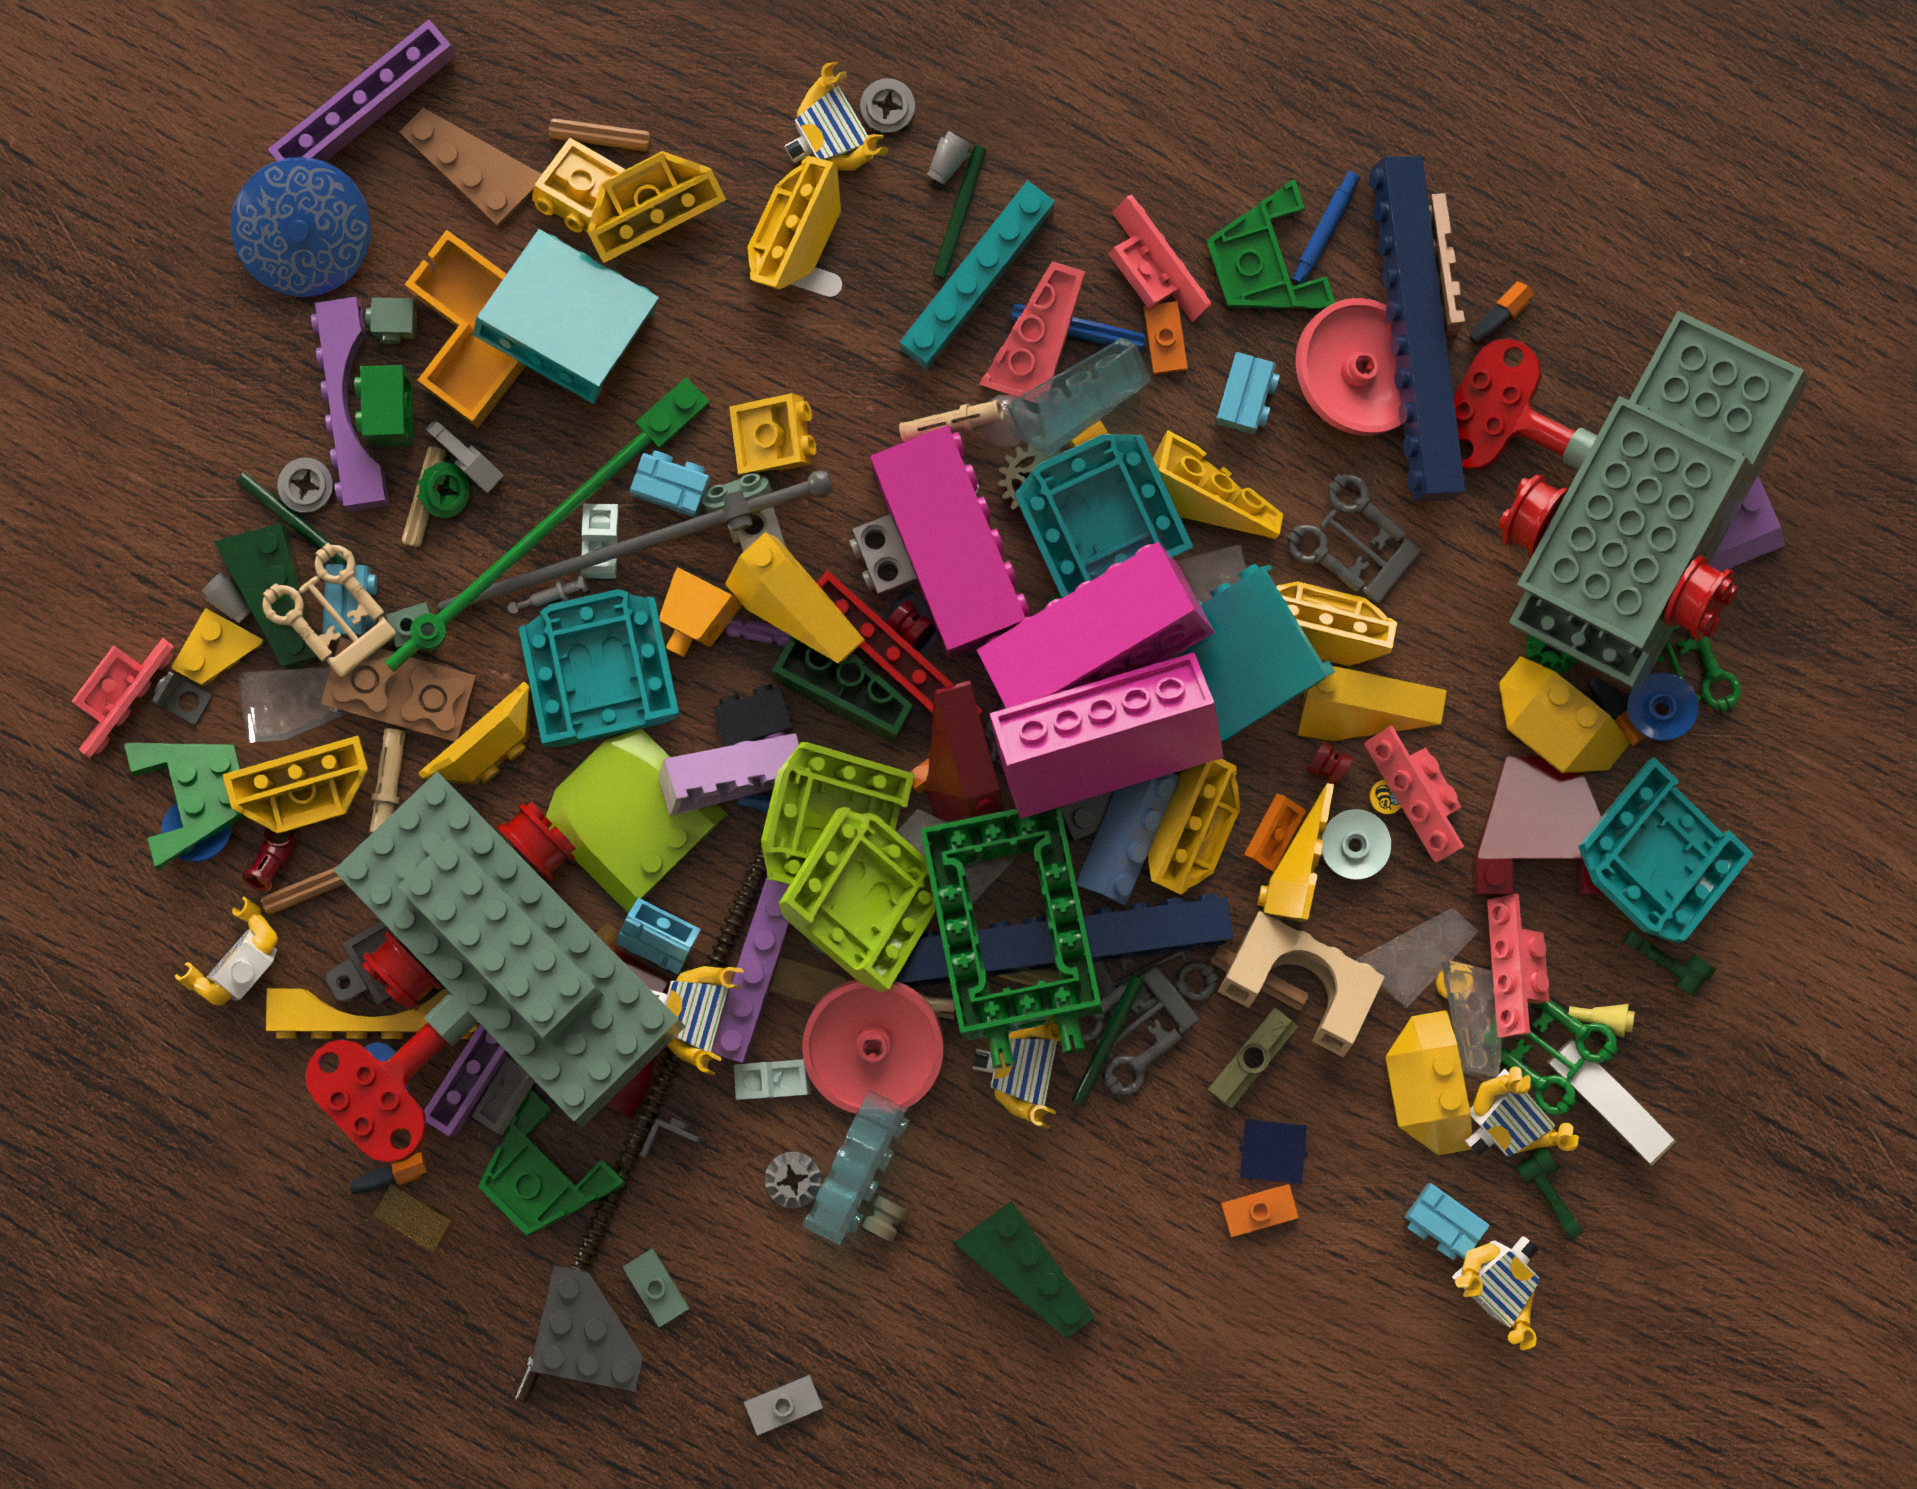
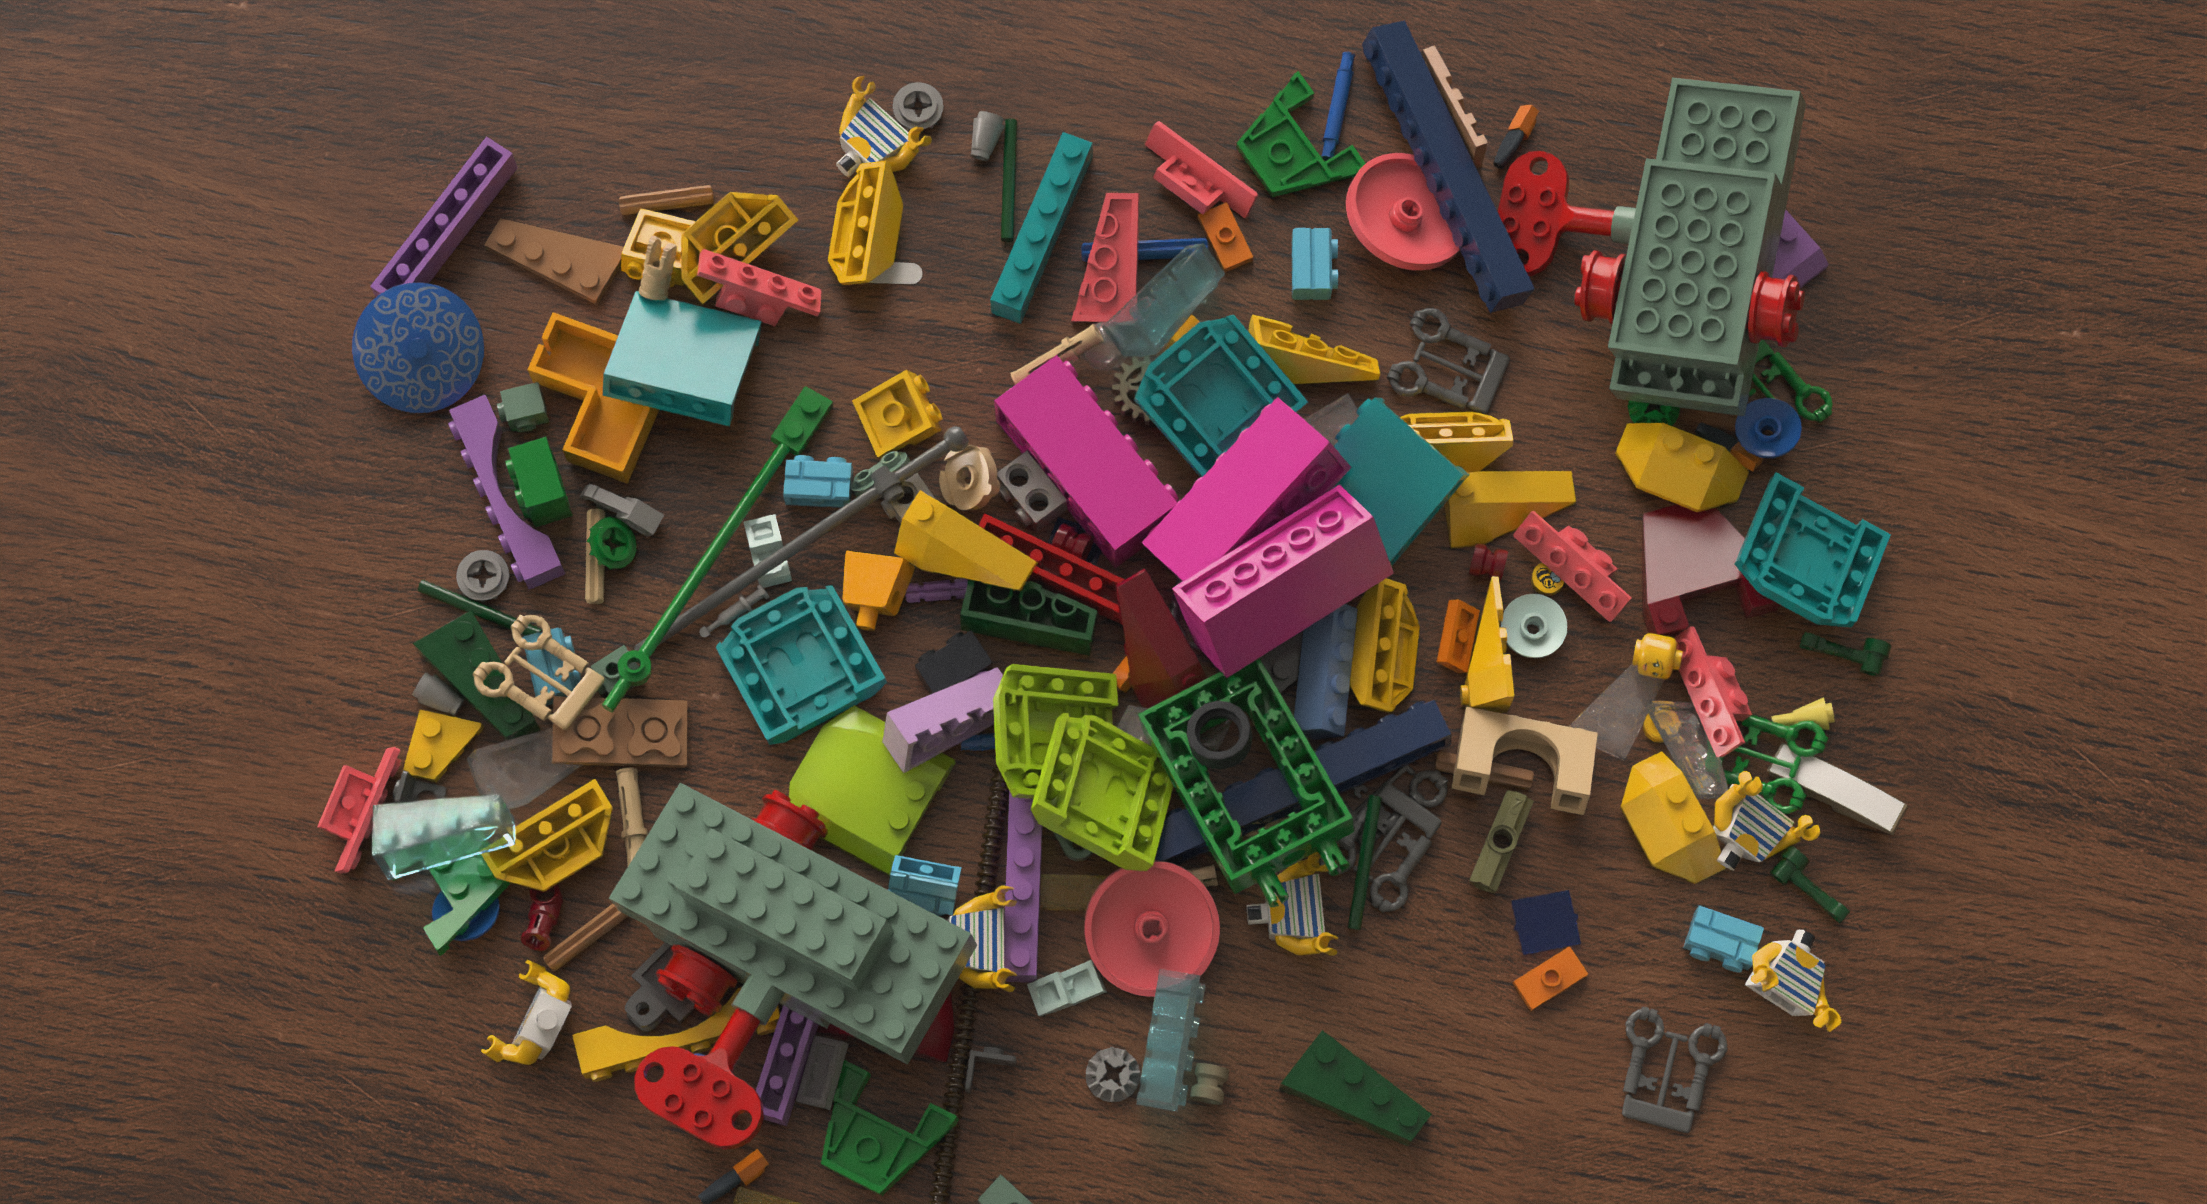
camera: 20 degrees left, 10 degrees down
(186, 746) = (438, 832): none -> clear light blue wedge
(487, 743) = (717, 754): yellow wedge -> none
(565, 216) = (657, 272): none -> tan hinge
(663, 263) = (755, 290): none -> coral bracket
(837, 535) = (983, 478): none -> tan plate
(985, 852) = (1210, 712): none -> black tyre
(1324, 1377) = (1658, 1114): none -> dark grey piece
(1470, 914) = (1657, 656): none -> yellow head

